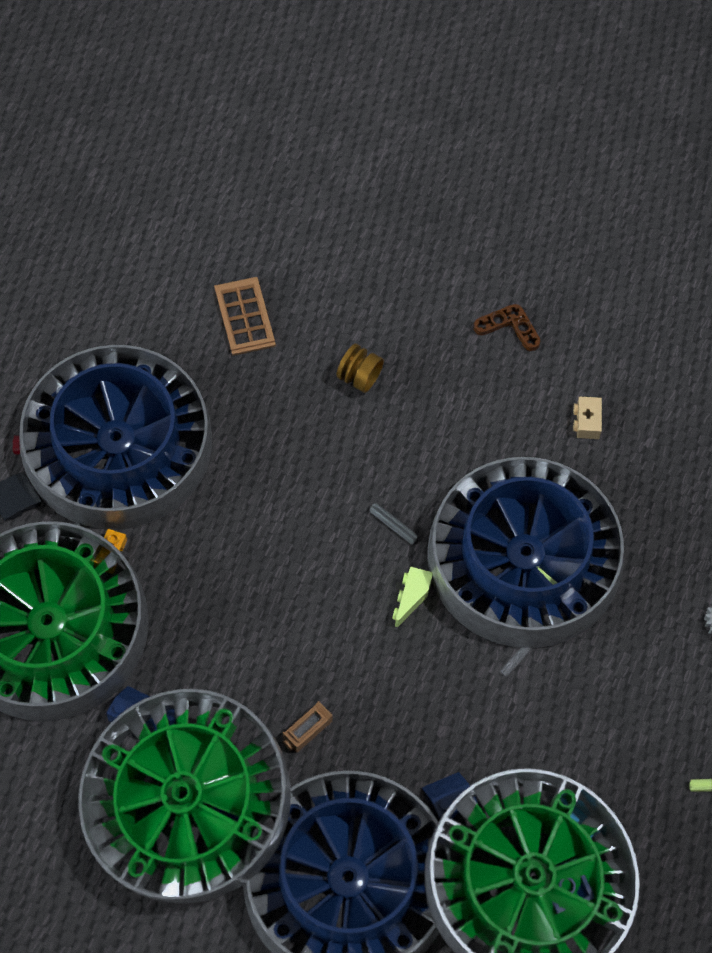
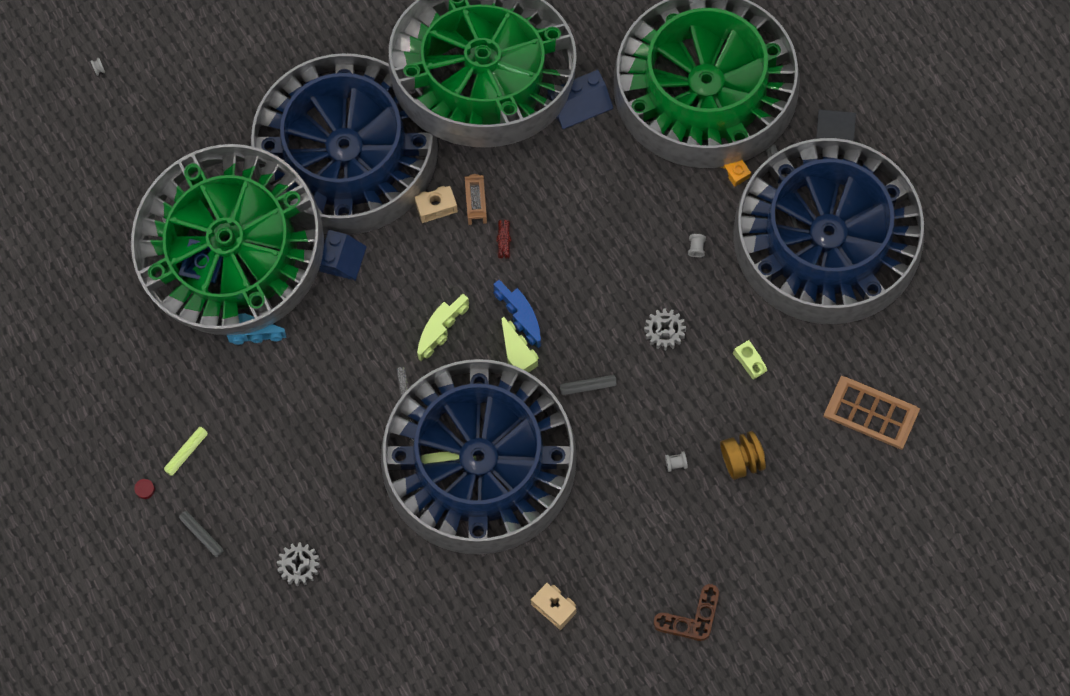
camera: 135 degrees right, 5 degrees up
(206, 527) = (697, 244): none -> light grey bush
(273, 422) = (750, 359): none -> yellowish green leg
(291, 495) = (665, 320): none -> light grey gear
(323, 680) = (503, 239): none -> clear red pin
(332, 746) = (430, 212): none -> tan brick
(377, 612) = (524, 316): none -> blue slope
(402, 416) = (676, 461): none -> light grey bush
(450, 669) = (435, 330): none -> yellowish green slope

